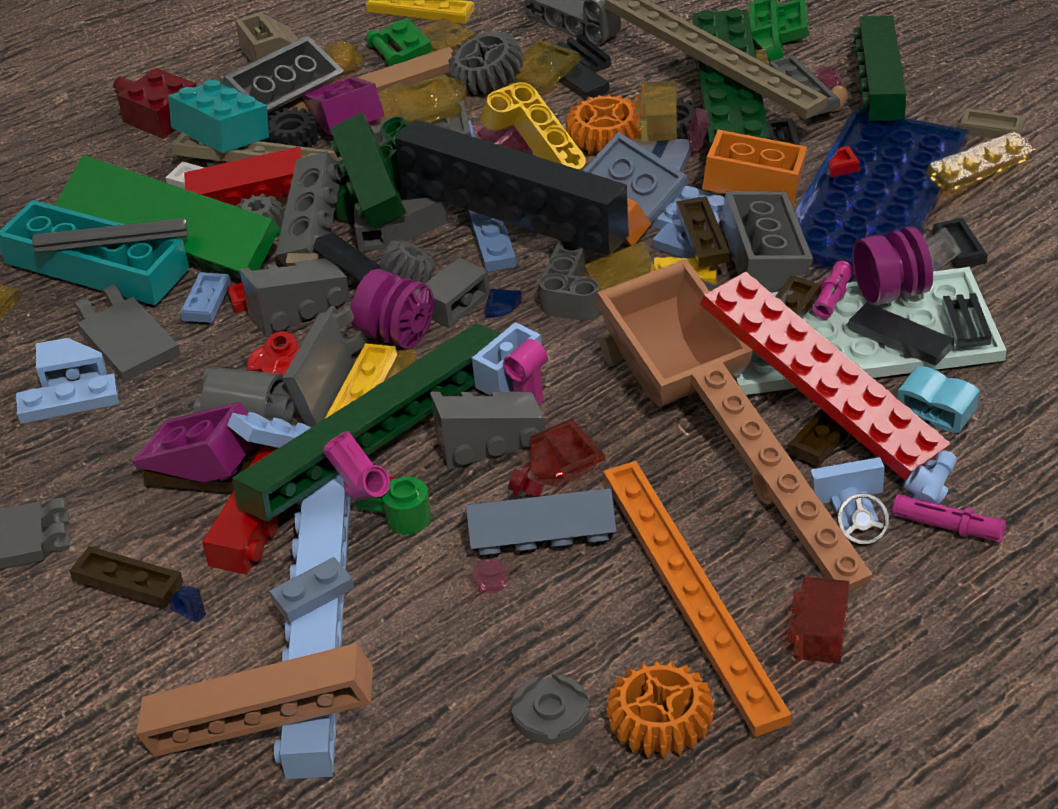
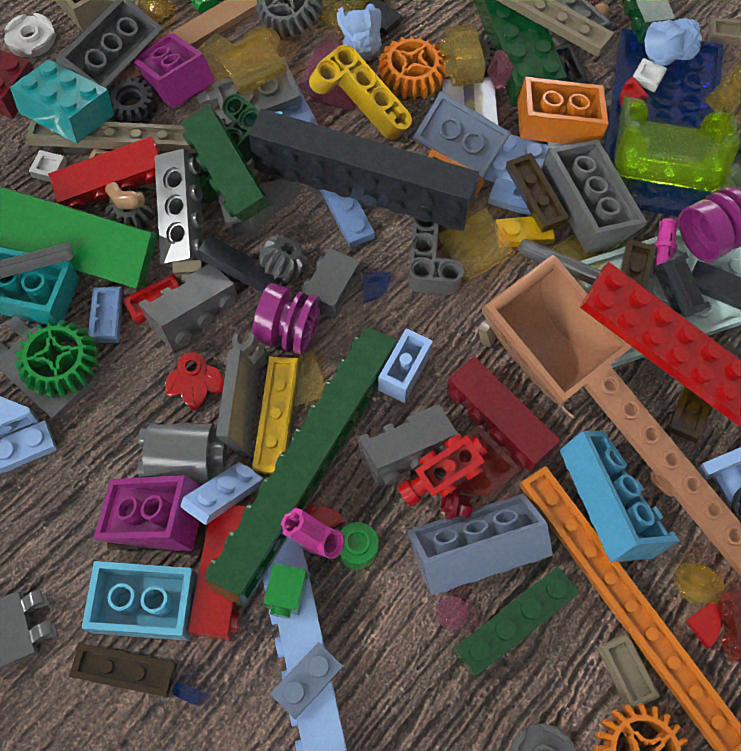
camera: 15 degrees left, 25 degrees up
(143, 319) = (71, 364): none -> green gear
(160, 516) = (140, 600): none -> medium azure brick
(203, 68) = (31, 46): none -> white tile
(256, 197) = (124, 199): none -> medium nougat arm
(314, 510) = (285, 590): none -> green brick
(520, 442) = (451, 462): none -> red brick
(524, 368) = (428, 379): dark pink piece -> none
(555, 583) = (515, 622): none -> dark green brick
(556, 84) = (361, 30): none -> light blue hair
(602, 414) = (501, 415): none -> dark red brick
(671, 641) = (628, 671): none -> dark tan tile
(702, 494) = (614, 500): none -> dark azure wedge
(774, 576) = (698, 583): none -> clear yellow plate
(774, 618) = (706, 624): none -> red tile
(835, 314) = (680, 286): none -> black hinge
(841, 209) = (673, 152): none -> clear neon green windscreen
(870, 147) = (649, 74): none -> white tile
(901, 114) = (672, 41): none -> light blue hair

